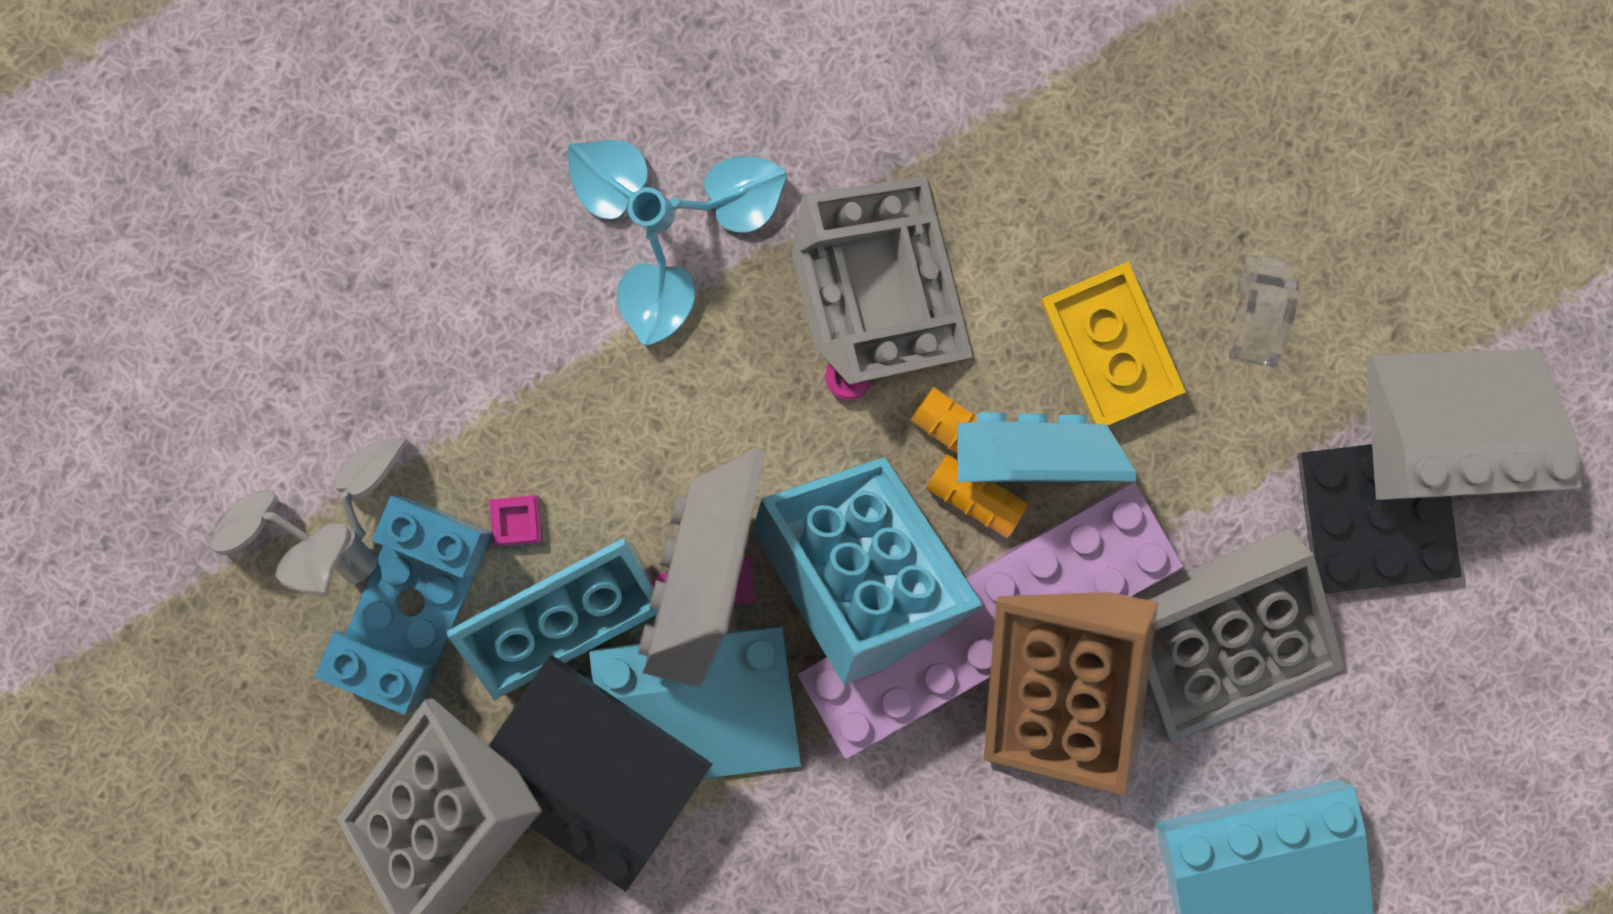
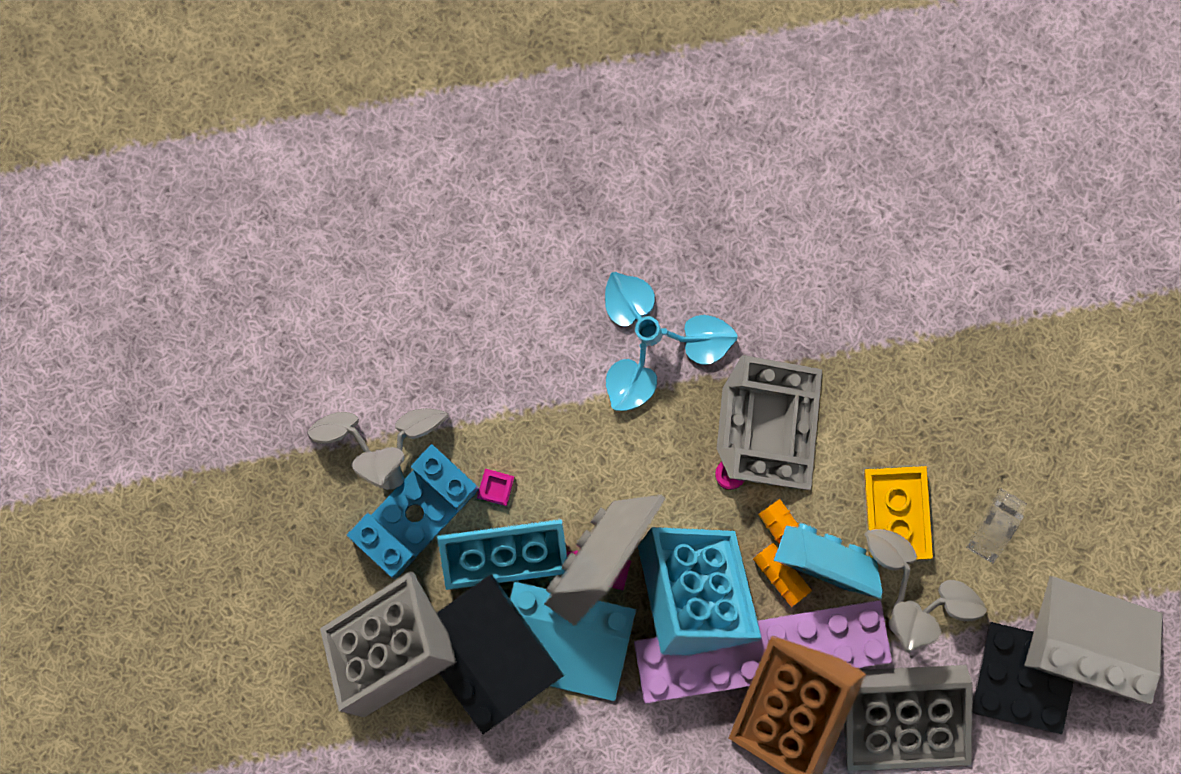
camera: 20 degrees right, 5 degrees down
(1204, 506) = (908, 621): none -> light grey plant

